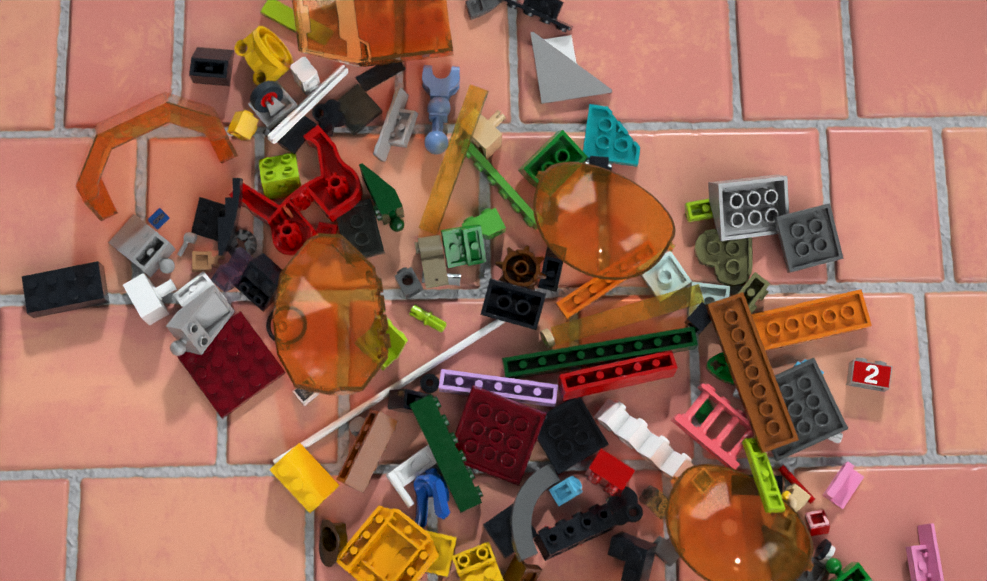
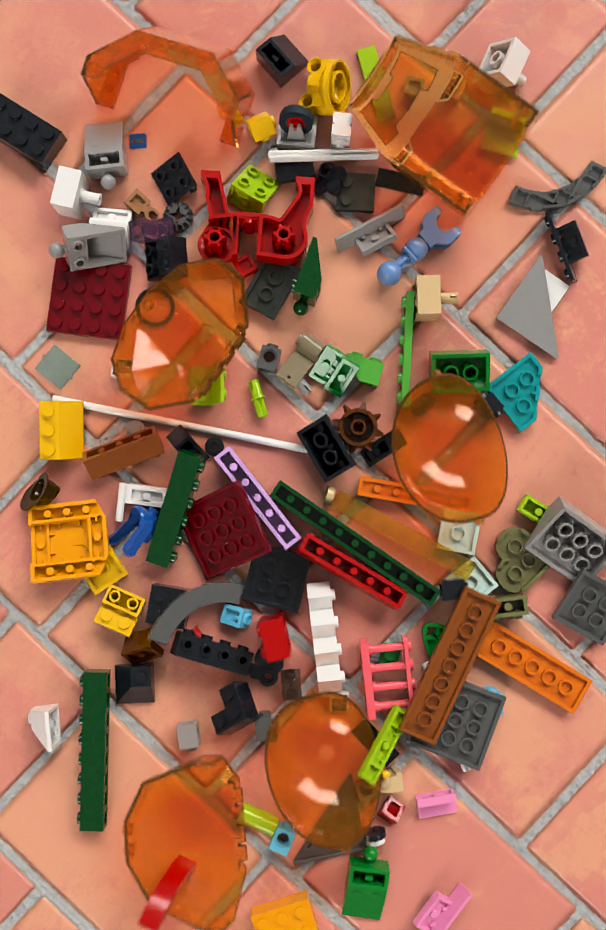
camera: 45 degrees right, 10 degrees up
(188, 238) = (144, 175): light grey hand -> none
(228, 224) = (178, 192): black slope -> none
(255, 437) = (57, 367): none -> clear light blue piece
(453, 159) = (389, 297): clear yellow tile -> none
(793, 480) = (404, 767): red piece -> none
(869, 375) = (534, 746): brick -> none

